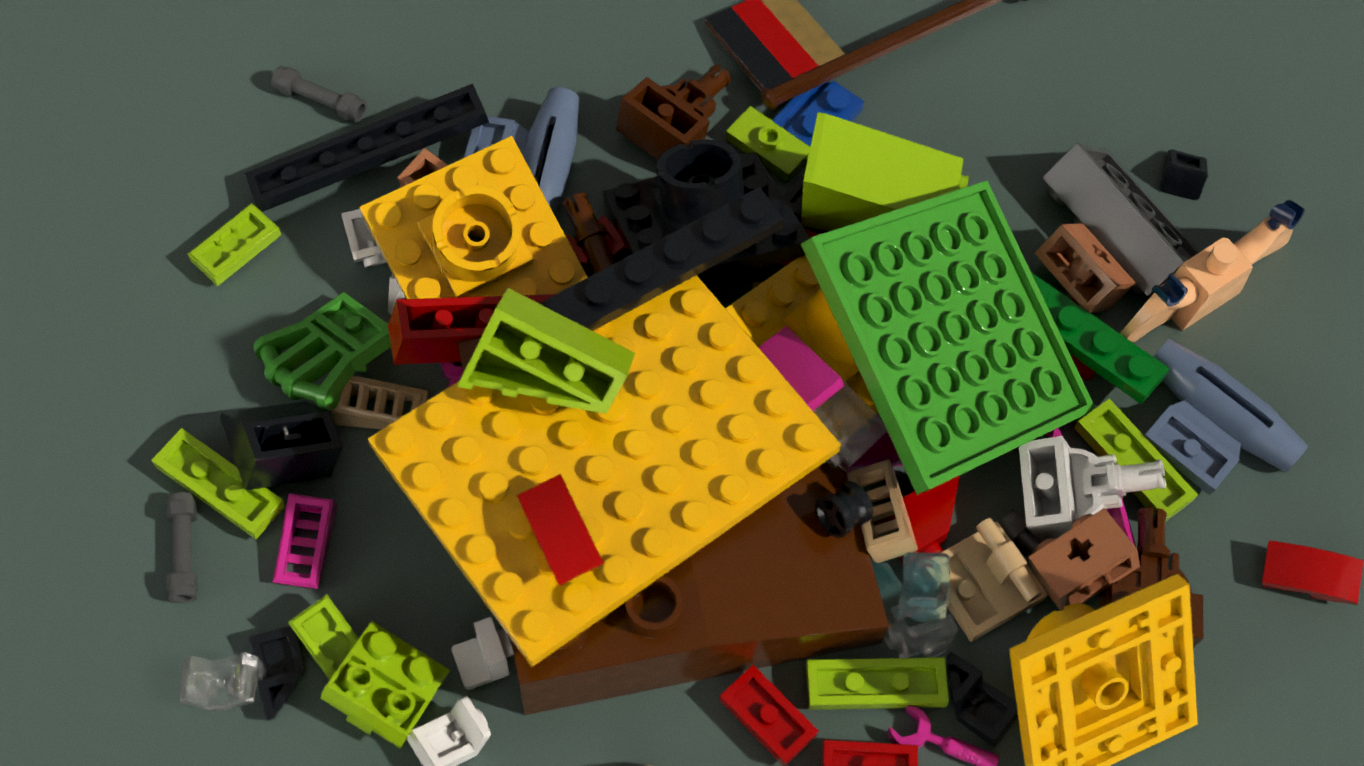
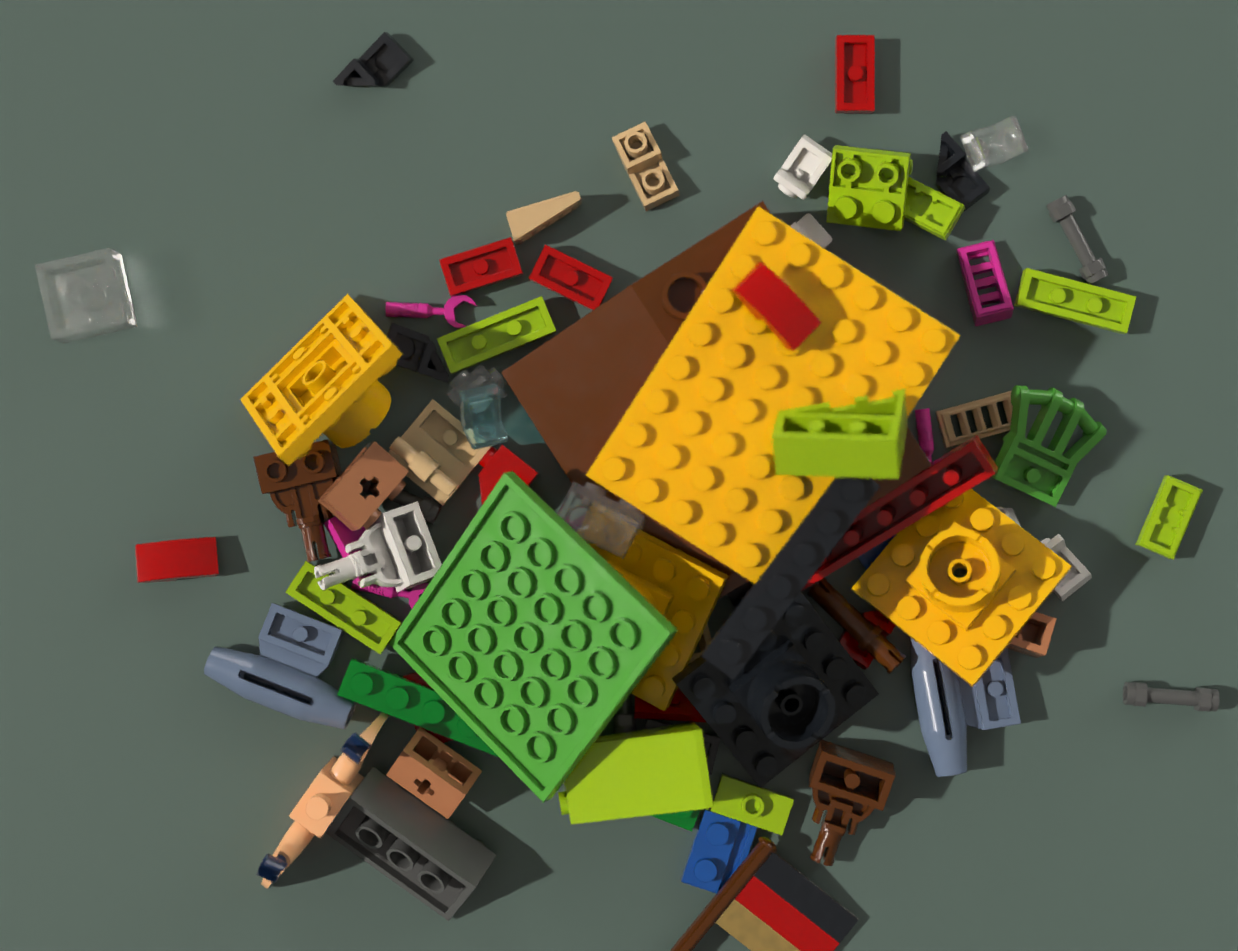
camera: 165 degrees right, 25 degrees up
(282, 443) = (1042, 348): black slope -> none
(366, 148) = (1099, 650): black plate -> none
(802, 368) = (644, 540): dark pink tile -> none
(843, 509) = (567, 446): black wheel -> none
(892, 537) = (549, 461): tan slope -> none
(1184, 174) = (370, 920): black slope -> none

